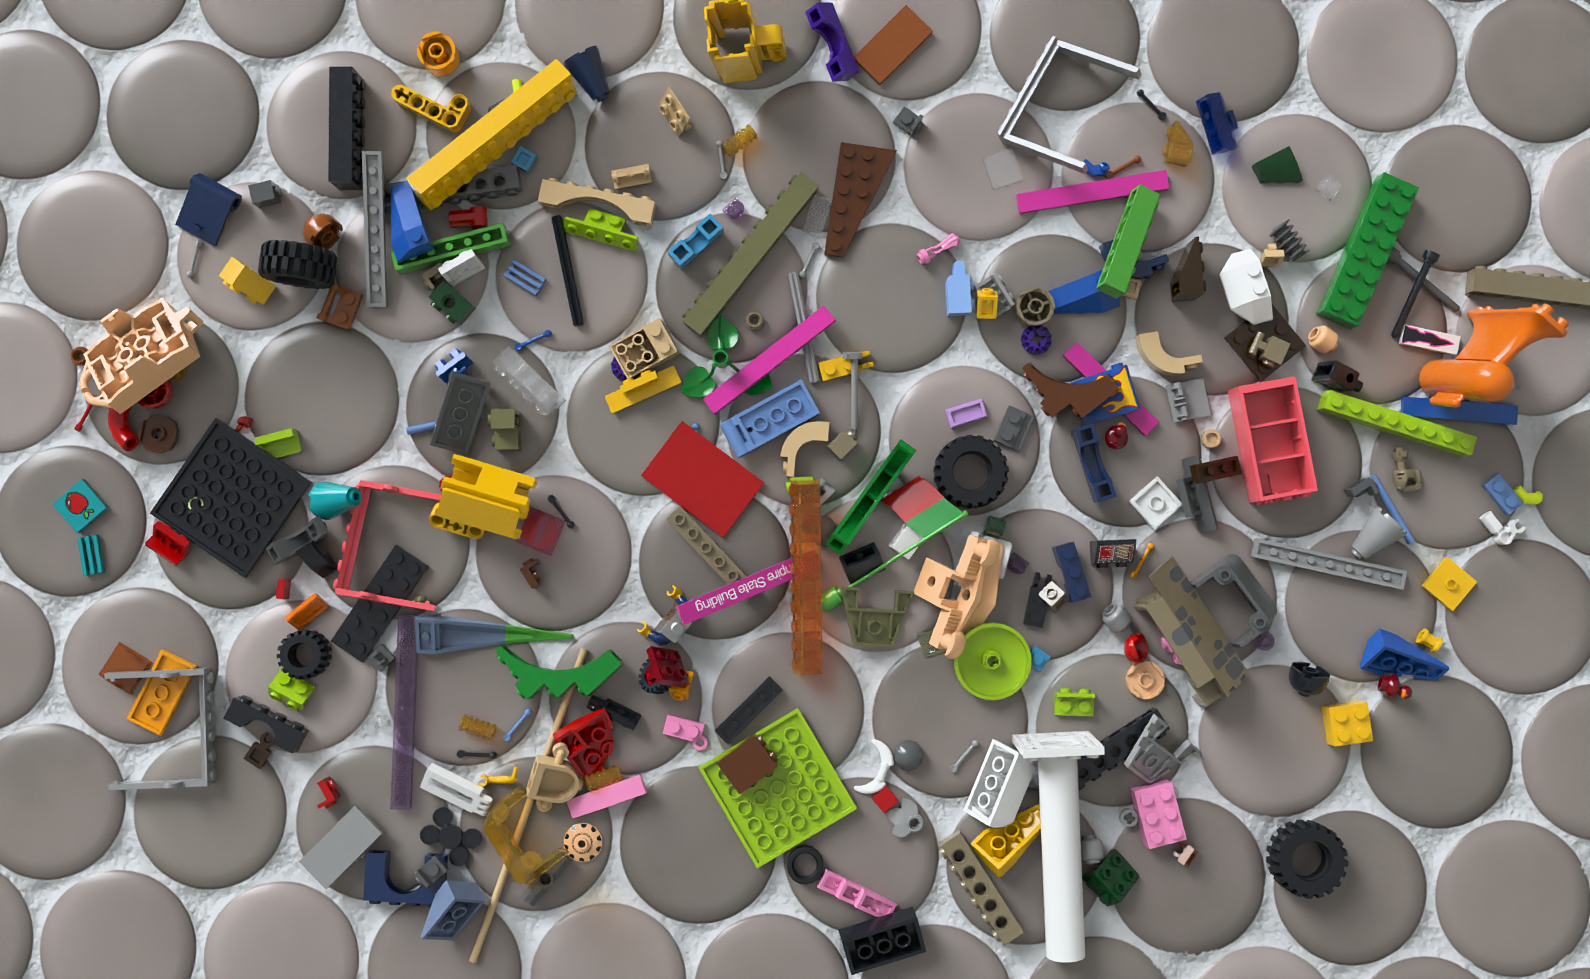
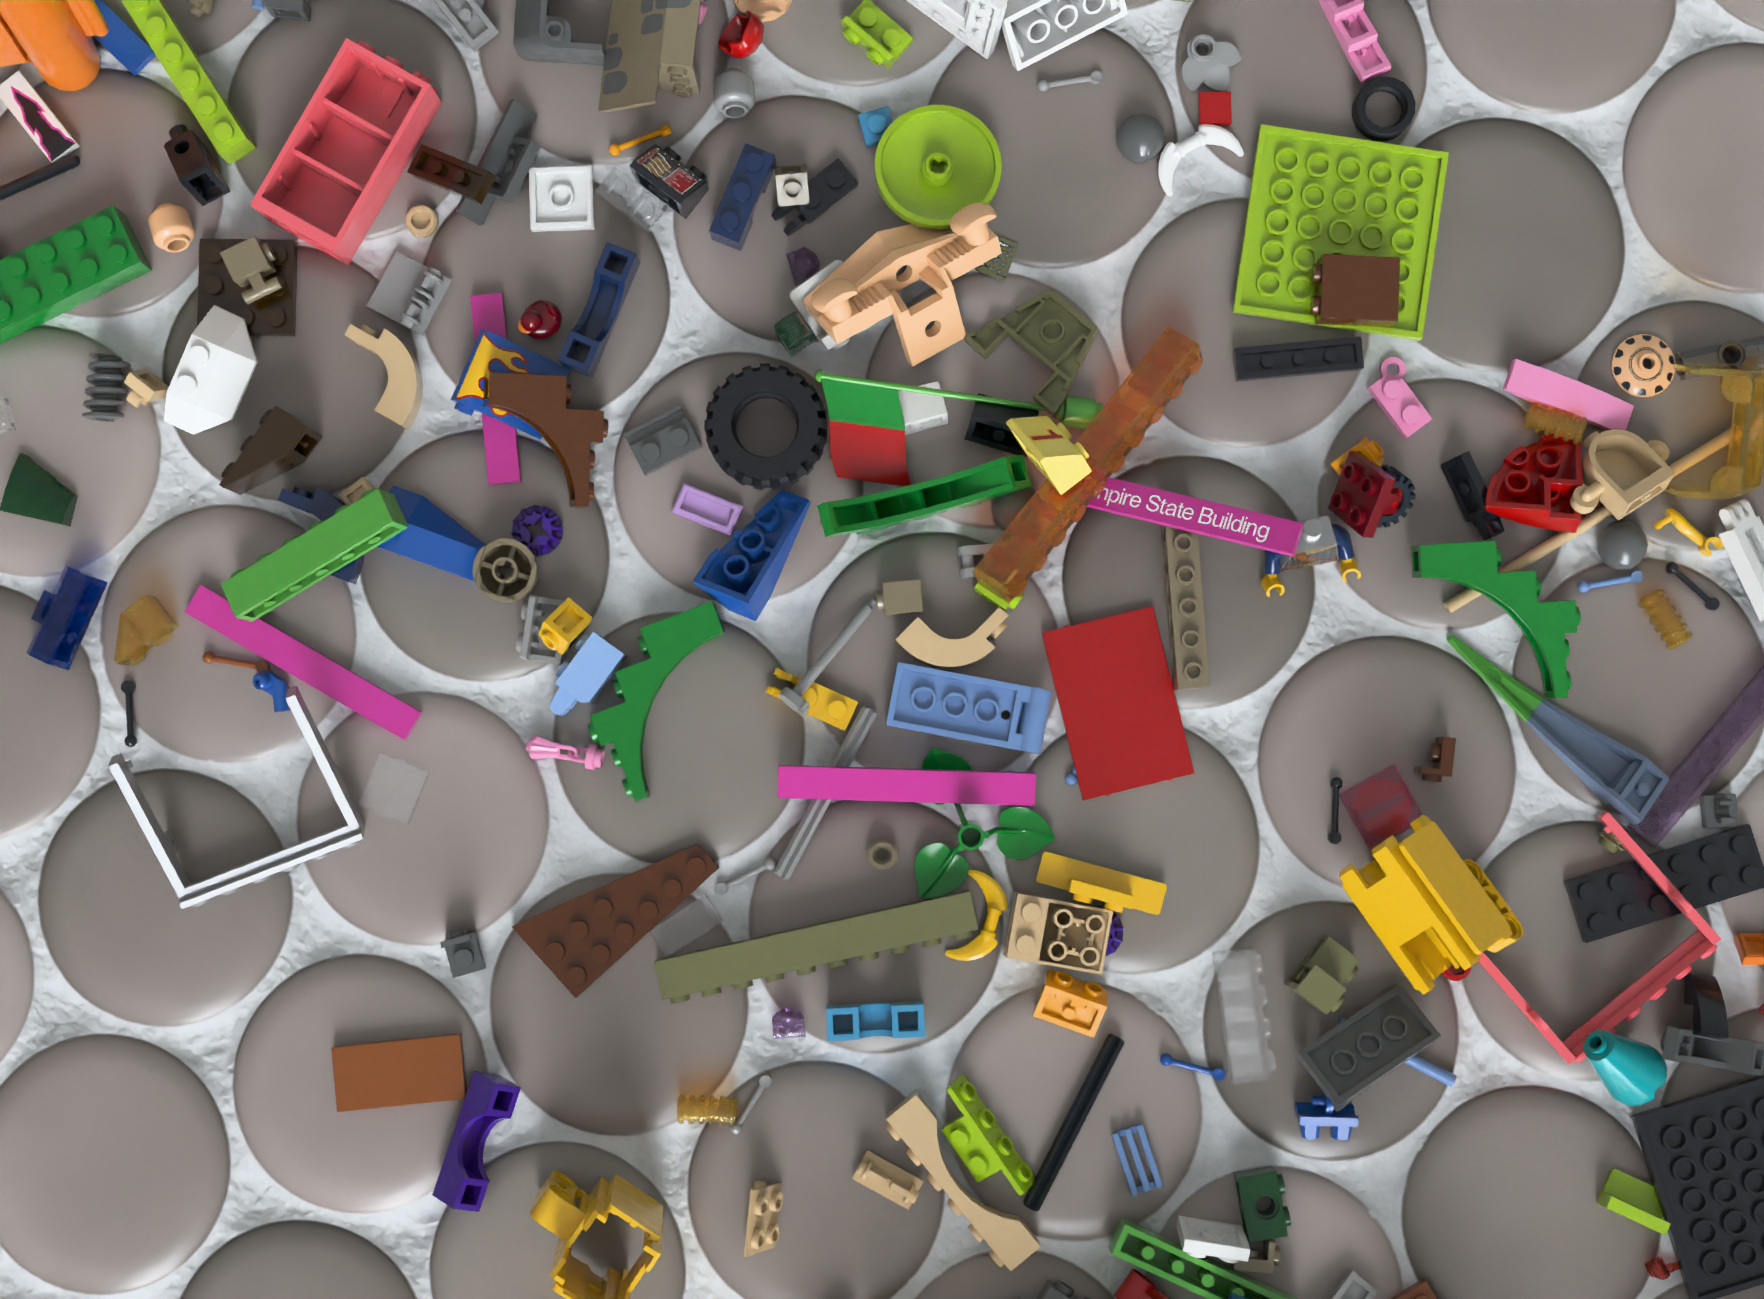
camera: 140 degrees left, 0 degrees up
(525, 746) = (1622, 545): none -> dark grey hair
(612, 323) = (1071, 1003): none -> light orange bracket
(683, 341) = (996, 904): none -> yellow piece
(829, 566) = (1051, 450): none -> light yellow slope
(921, 281) = (624, 724): none -> green arch
(925, 404) = (750, 564): none -> blue wedge
(1122, 528) = (631, 199): none -> clear slope

